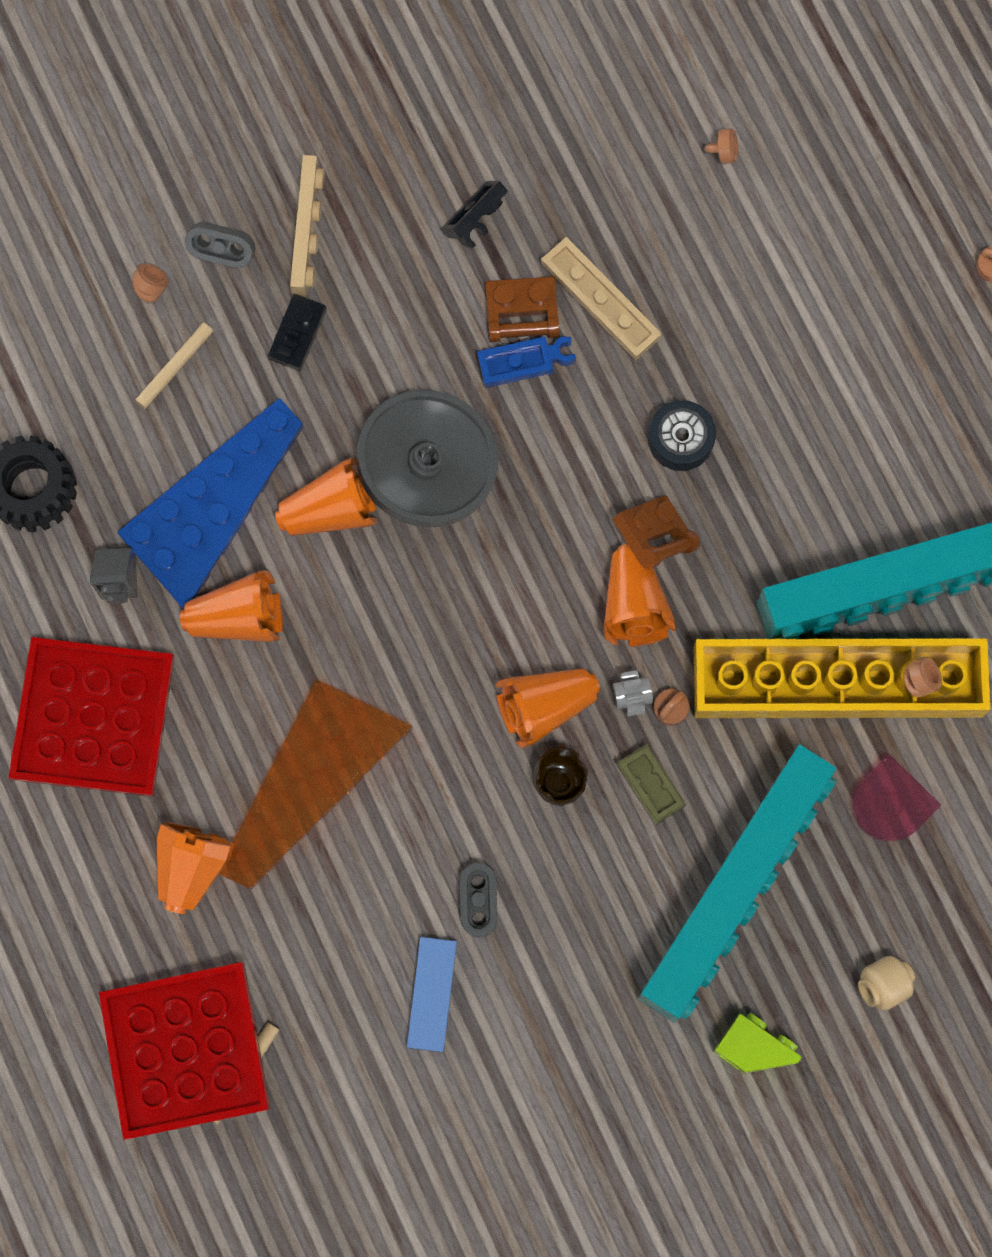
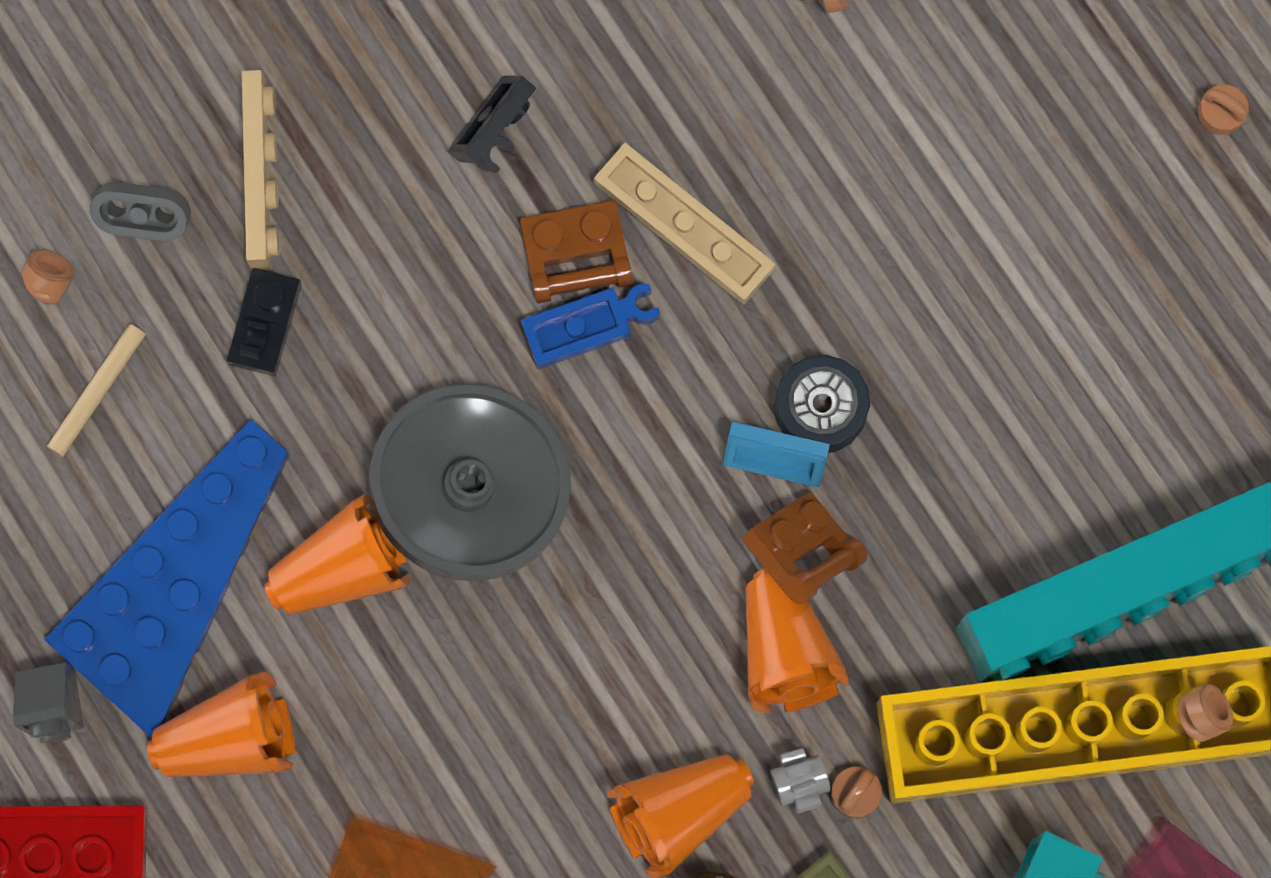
camera: 10 degrees left, 0 degrees up
(644, 466) = (775, 454): none -> dark azure tile

